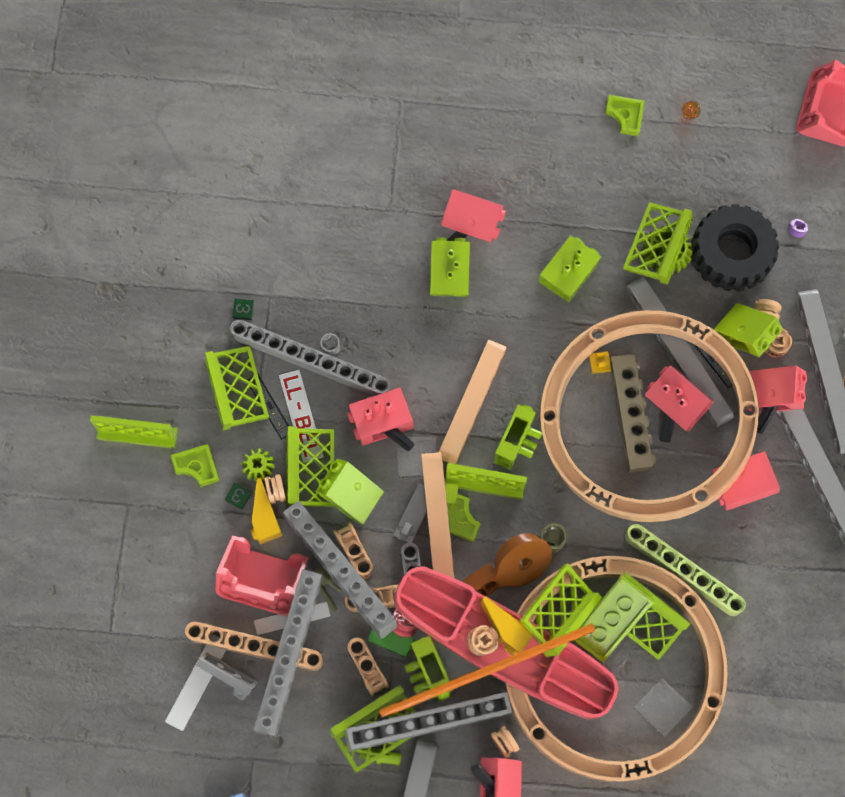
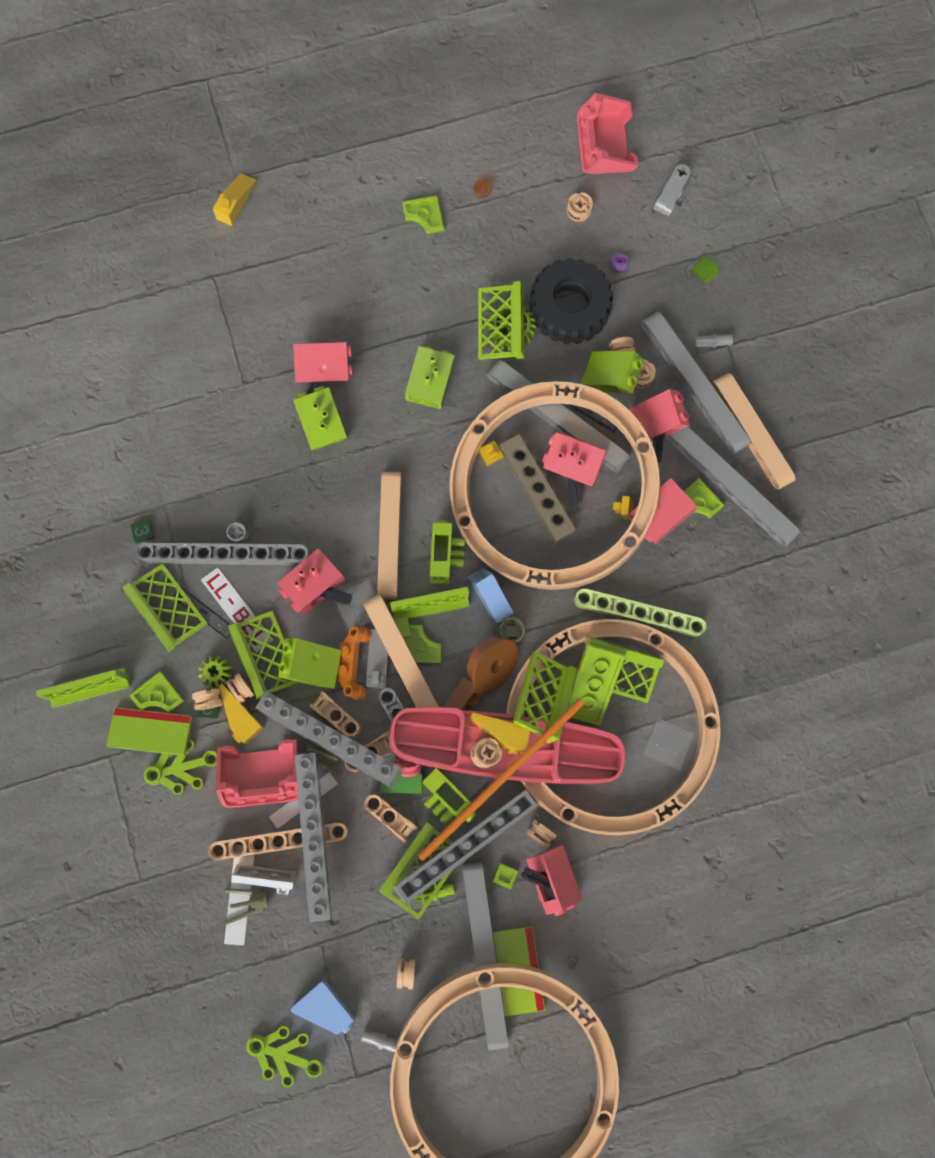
camera: 25 degrees left, 5 degrees up
(176, 496) = (149, 731): none -> lime tile
(188, 540) = (178, 769): none -> lime plant
(212, 693) = (257, 901): none -> olive plant
(241, 486) = (206, 699): none -> light nougat wheel
(386, 505) = (349, 662): none -> orange plate
(450, 35) = (233, 199): none -> yellow slope
(454, 768) = (505, 876): none -> lime tile
(546, 495) = (490, 595): none -> light blue slope
(709, 463) = (624, 507): none -> yellow tile
(779, 161) = (580, 206): none -> light nougat wheel
(791, 486) = (704, 499): none -> lime tile

